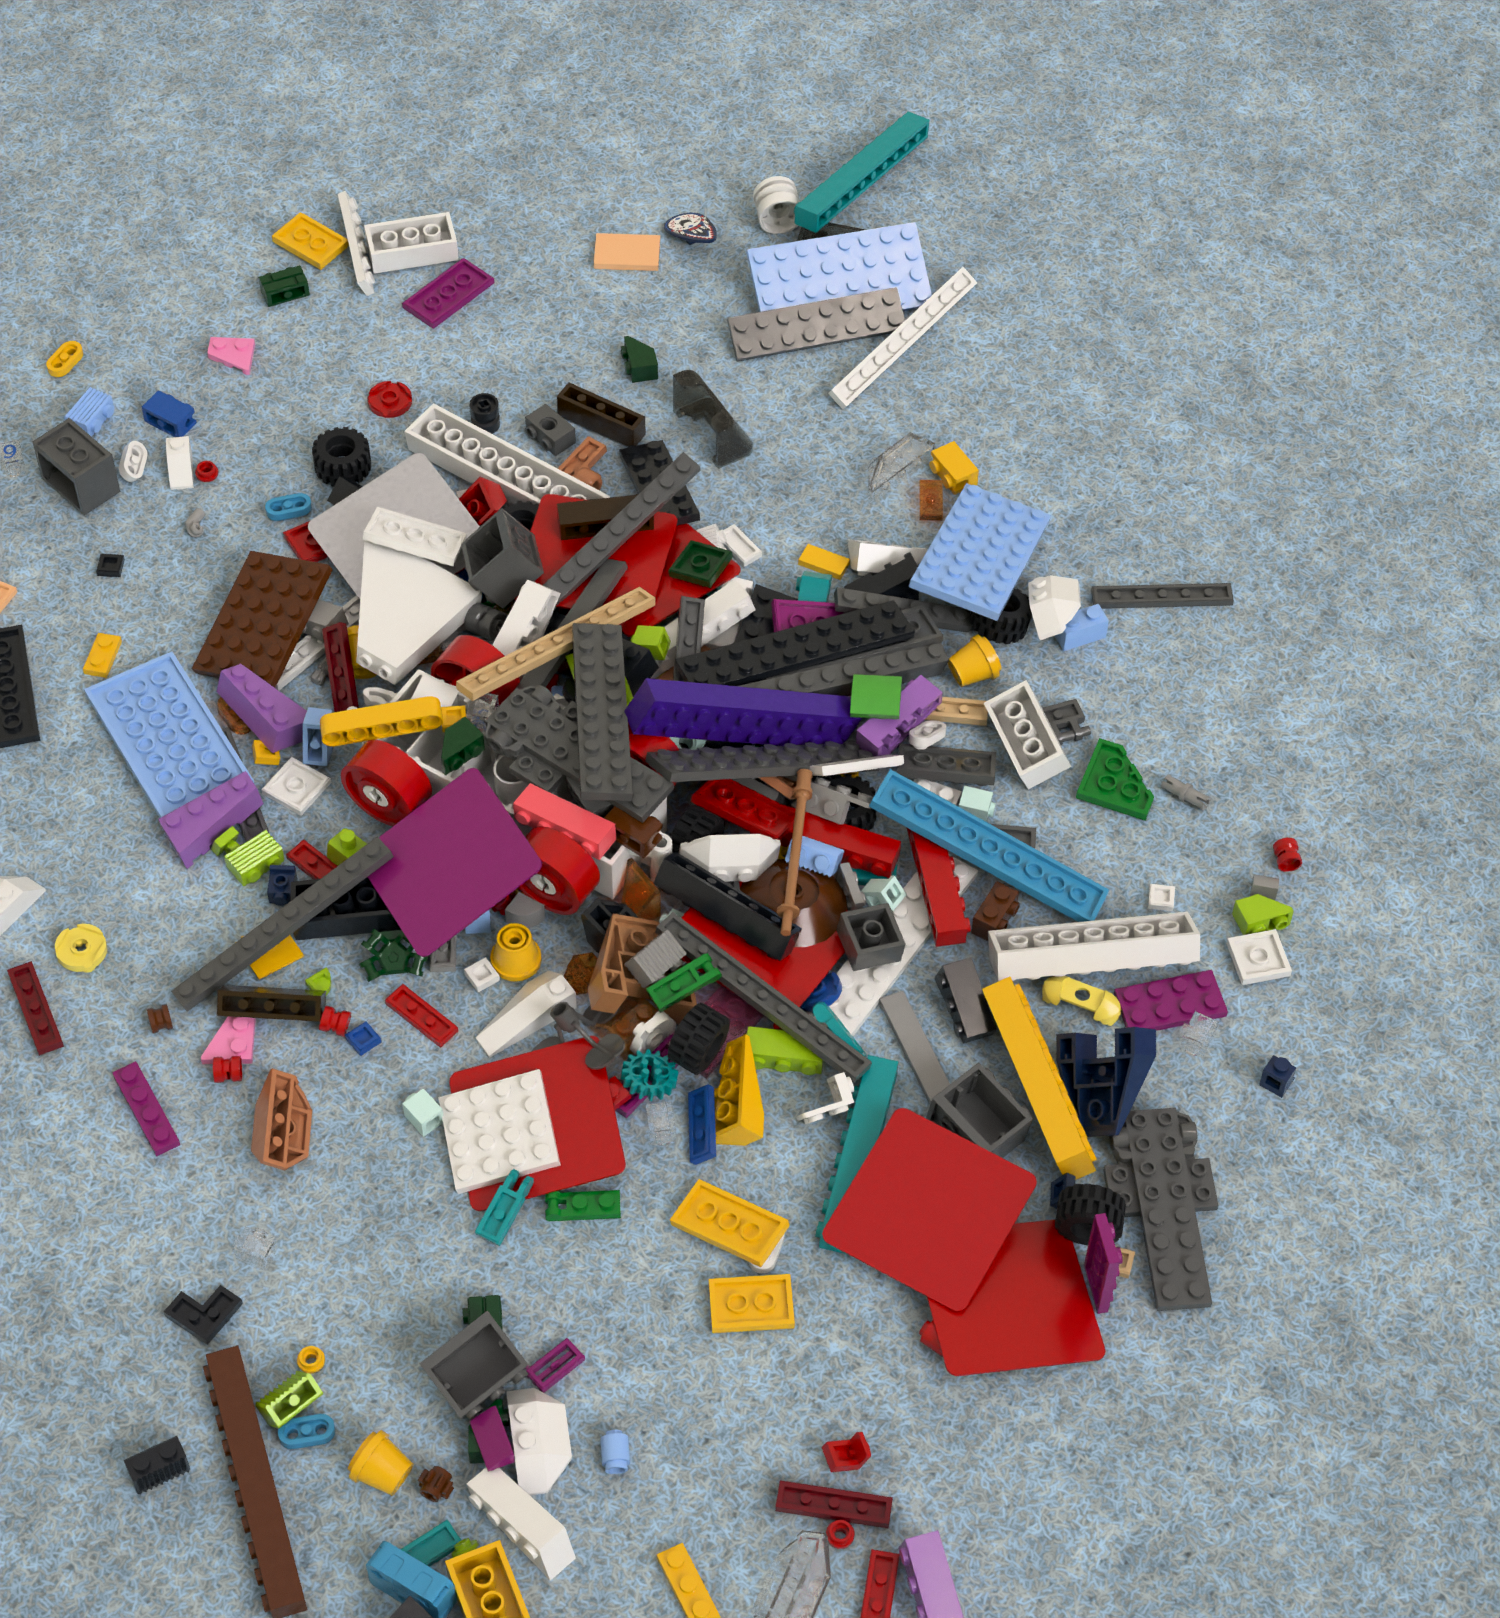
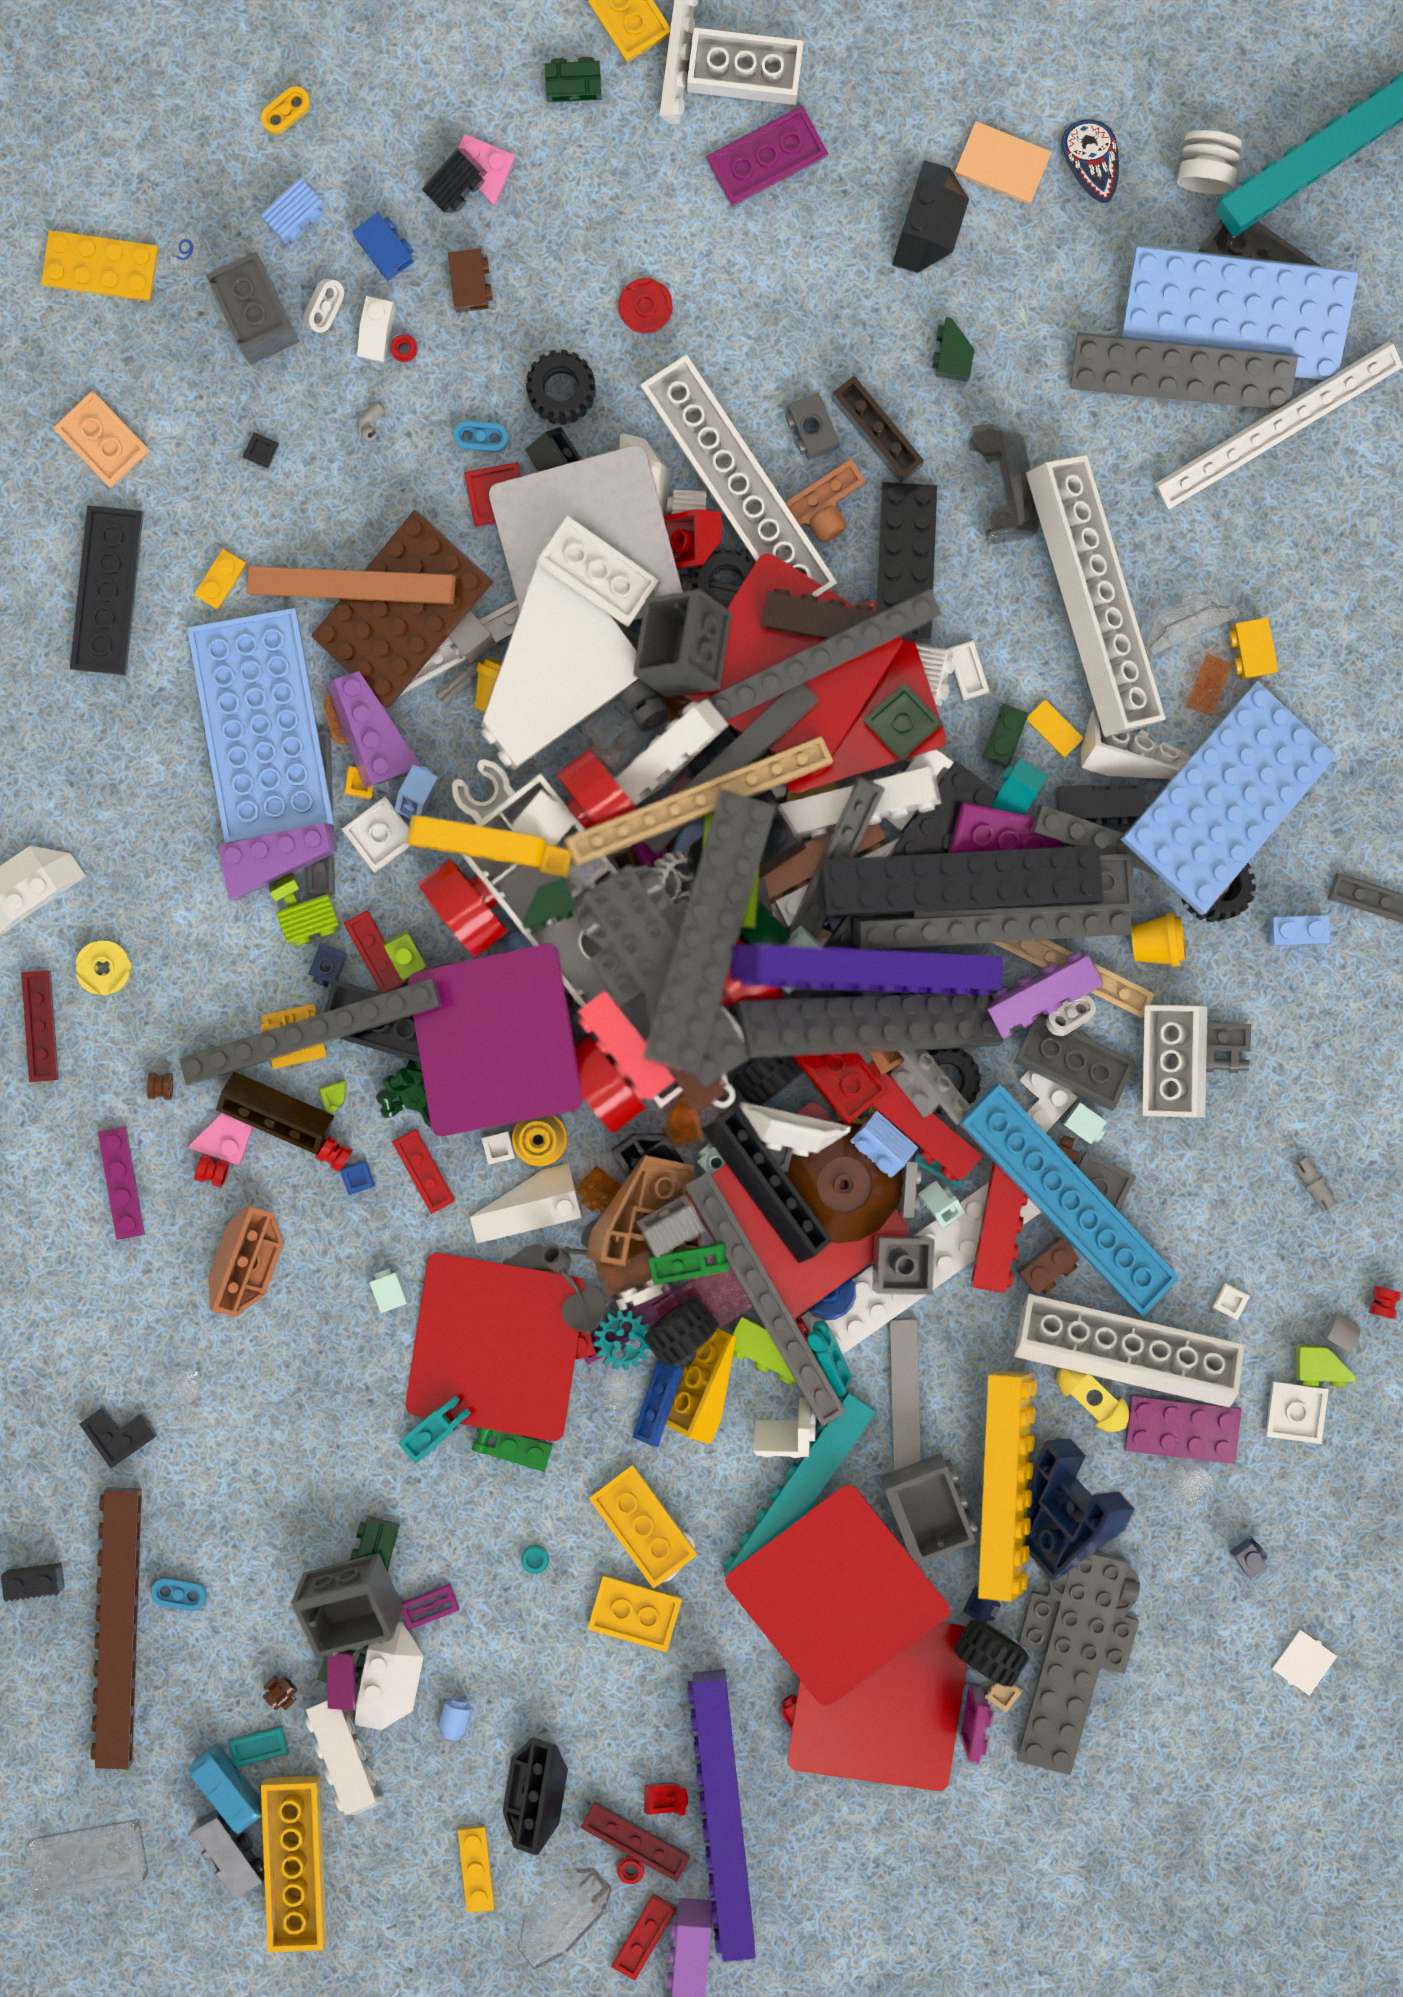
camera: 25 degrees right, 35 degrees up
(212, 360) = (454, 181): none -> black brick
(214, 613) = (351, 585): none -> nougat tile
(245, 416) = (468, 280): none -> reddish brown brick
(289, 1399) = (169, 1561): lime brick -> none
(311, 1352) = (198, 1525): yellow plate -> none
(340, 667) = (466, 714): dark red plate -> none
(380, 1464) = (234, 1658): yellow piece -> none
(464, 1546) = (287, 1765): lime plate -> none
(485, 412) = (744, 378): black wheel -> none
(499, 1130) = (456, 1342): white plate -> none
(588, 295) = (931, 219): none -> black wedge
(640, 1292) = (535, 1559): none -> teal tile
(653, 638) = (807, 815): lime brick -> none
(717, 1484) = (534, 1794): none -> black wedge
(786, 569) = (1005, 735): none -> dark green brick
(801, 792) = (894, 1081): medium nougat bar -> none
(816, 463) = (1095, 595): none -> white brick
(856, 765) = (970, 1051): white tile -> none
(876, 696) = (1025, 976): bright green slope -> none
(908, 1441) = (723, 1821): none -> dark purple brick
(965, 1000) = (973, 1359): wedge -> none
(1053, 603) = (1277, 903): white wedge -> none
(1115, 782) = (1246, 1143): green plate -> none
(1370, 1149) = (1304, 1662): none -> white piece

